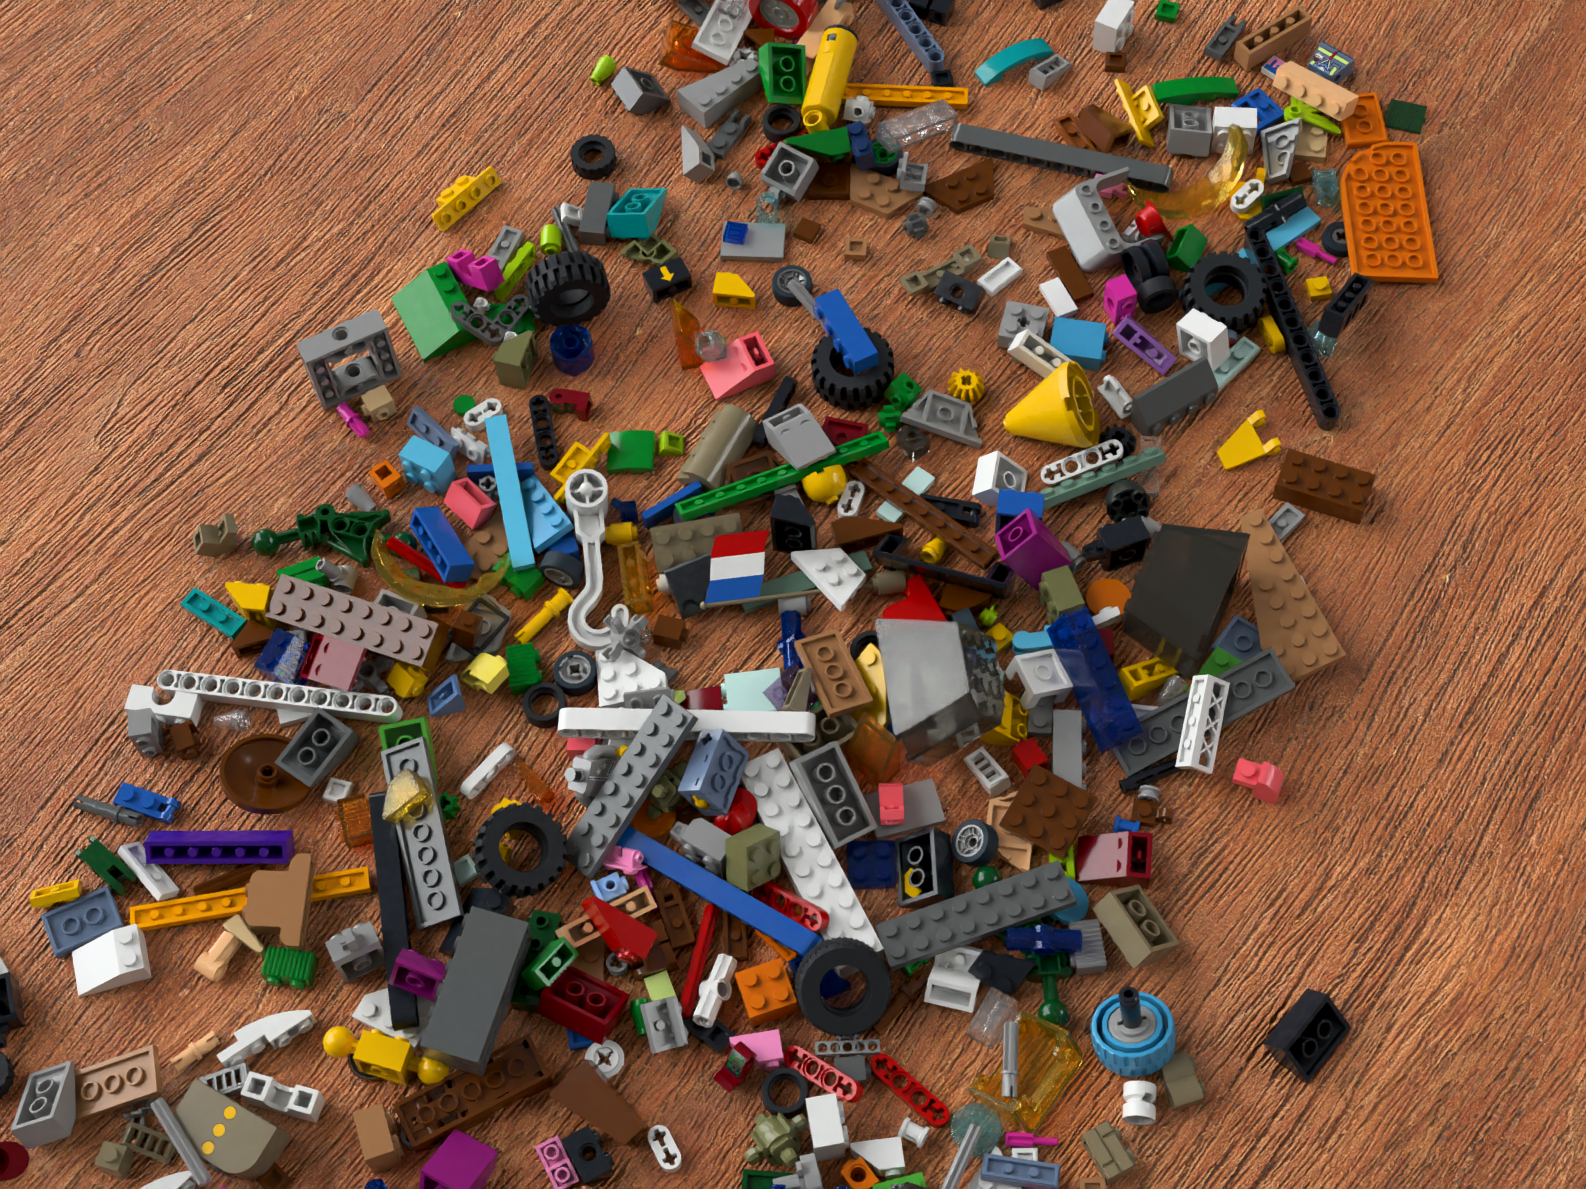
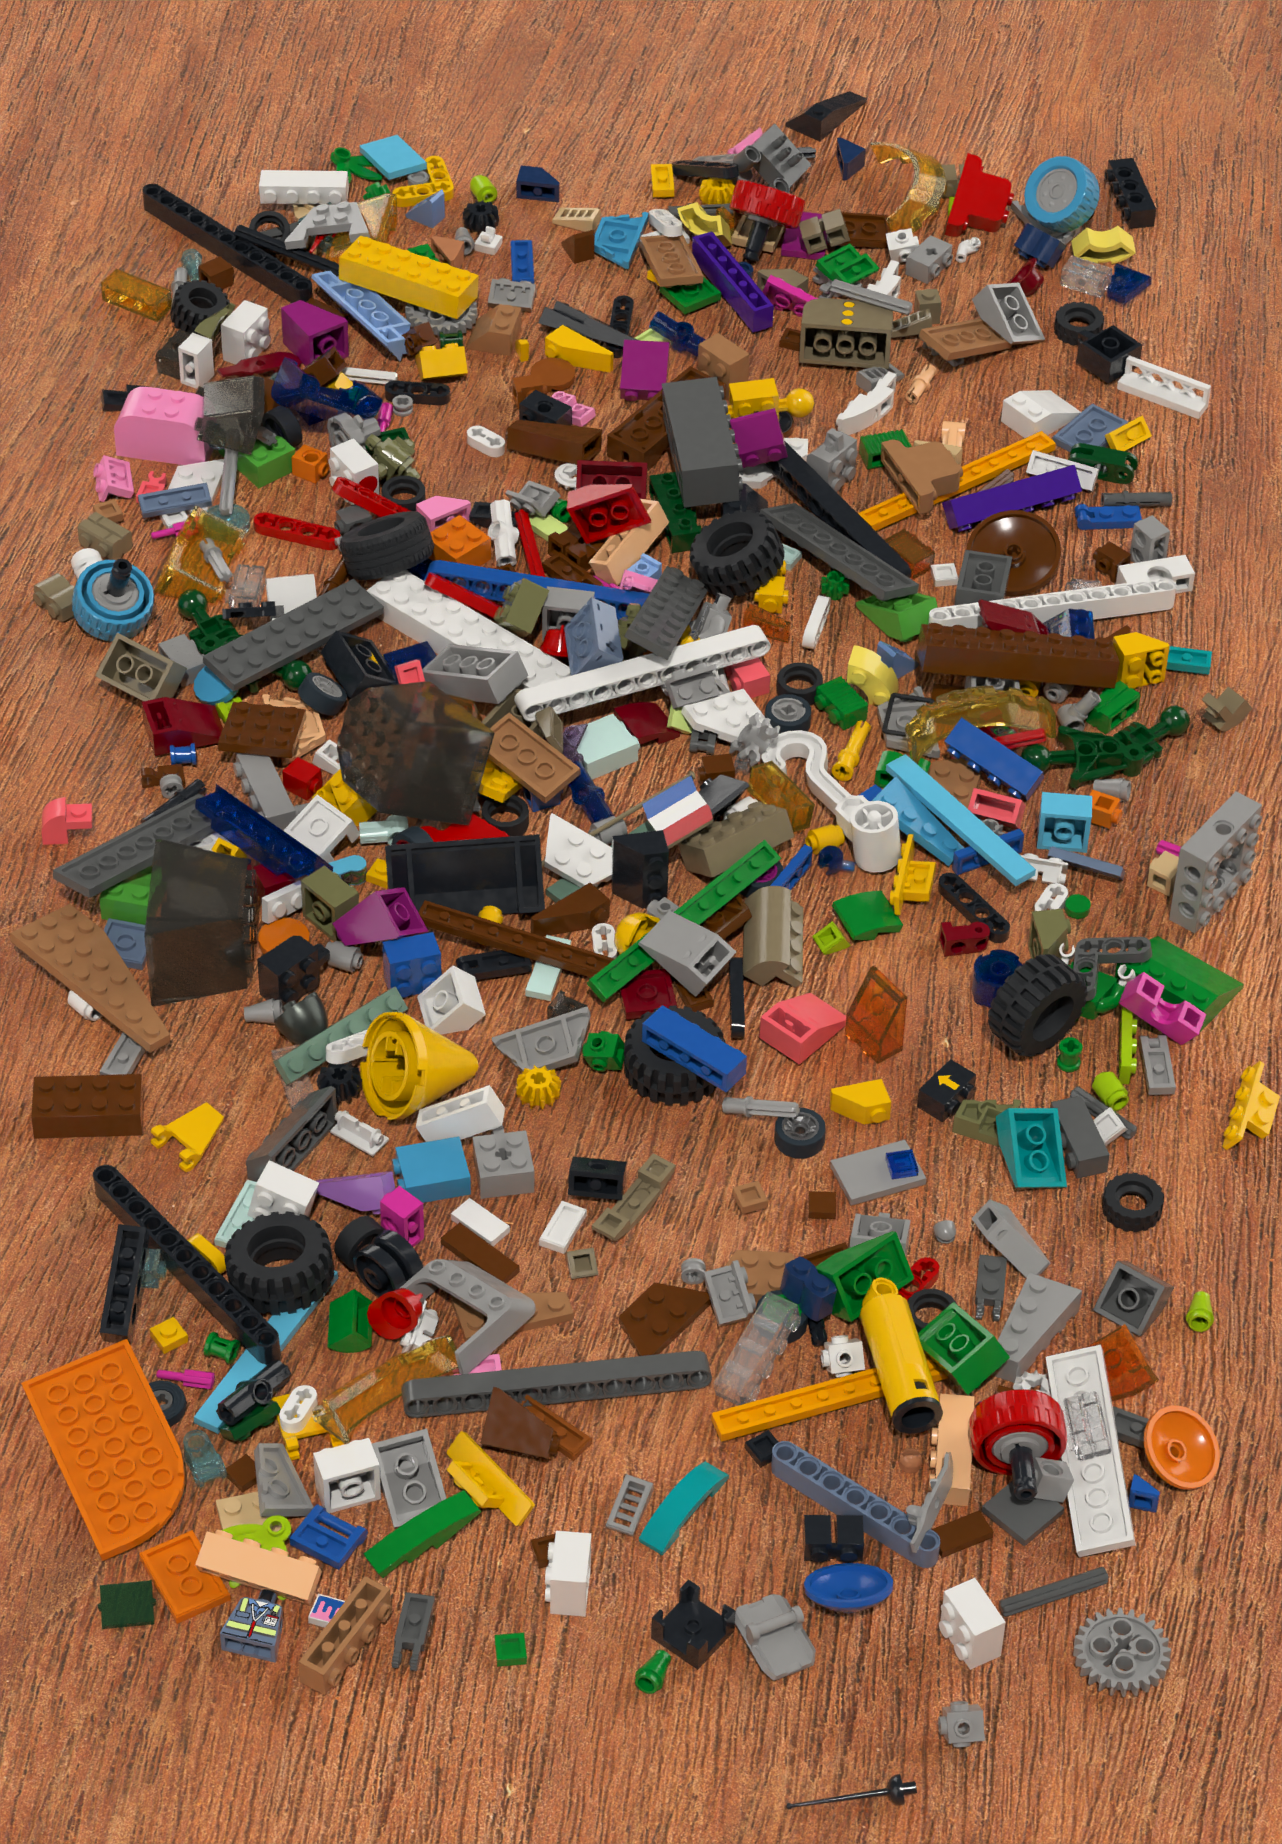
camera: 150 degrees right, 15 degrees down
(271, 1095) = (839, 373): white arch -> none
(404, 795) = (867, 552): clear yellow slope -> none
(467, 629) = (911, 694): reddish brown brick -> none
(549, 964) = (654, 480): green brick -> none
(561, 569) = (859, 774): black wheel -> none
(710, 346) = (840, 1006): clear light blue brick -> none
(736, 1067) = (453, 487): dark red leg -> none
(767, 217) = (880, 1197): clear light blue brick -> none
(881, 1155) = (300, 481): white slope -> none
(889, 418) = (606, 1022): green gear -> none
(913, 1132) = (279, 503): white bush -> none
(915, 225) = (693, 1241): dark grey gear -> none
(1043, 940) = (221, 628): clear blue piece -> none
(1198, 721) = (142, 820): white fence -> none

